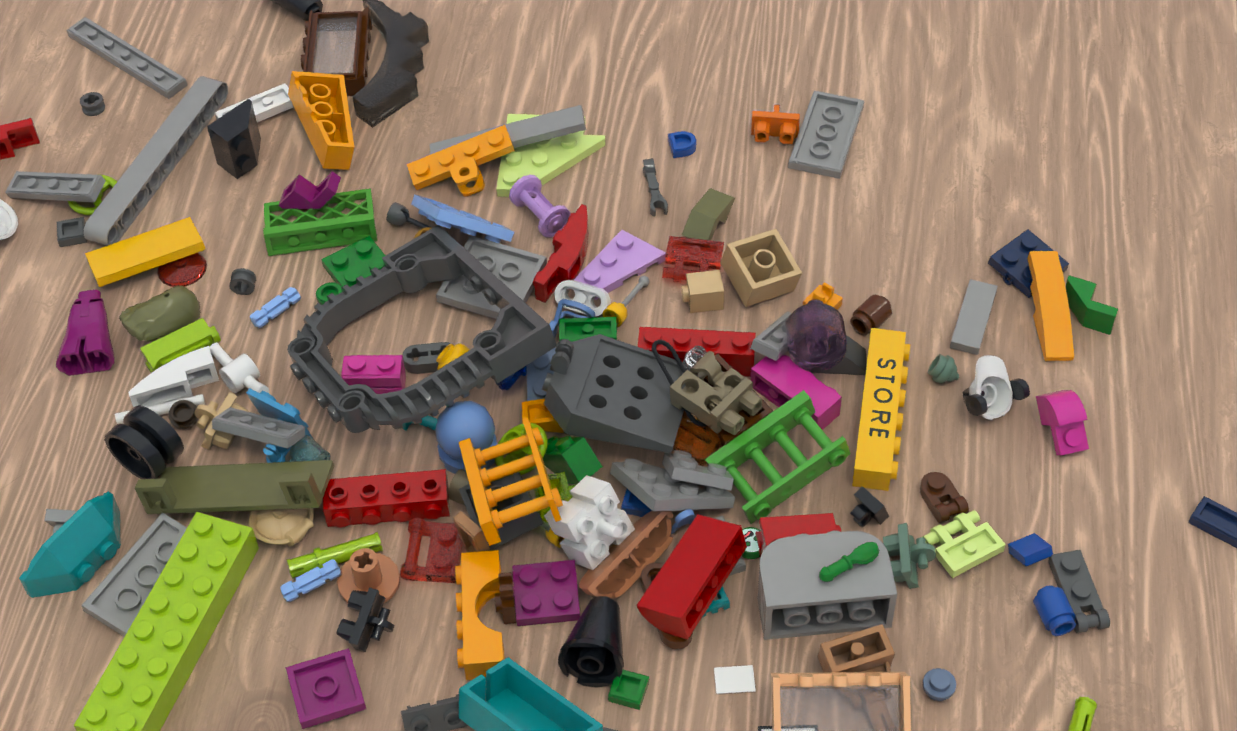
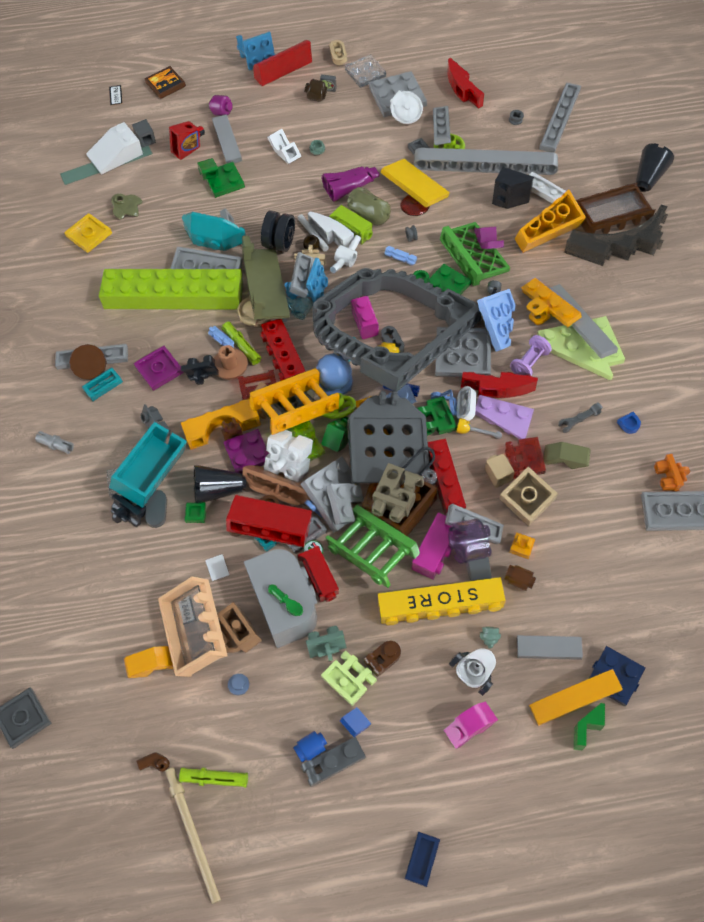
camera: 75 degrees right, 10 degrees up
(868, 508) = (357, 612): black tile -> none

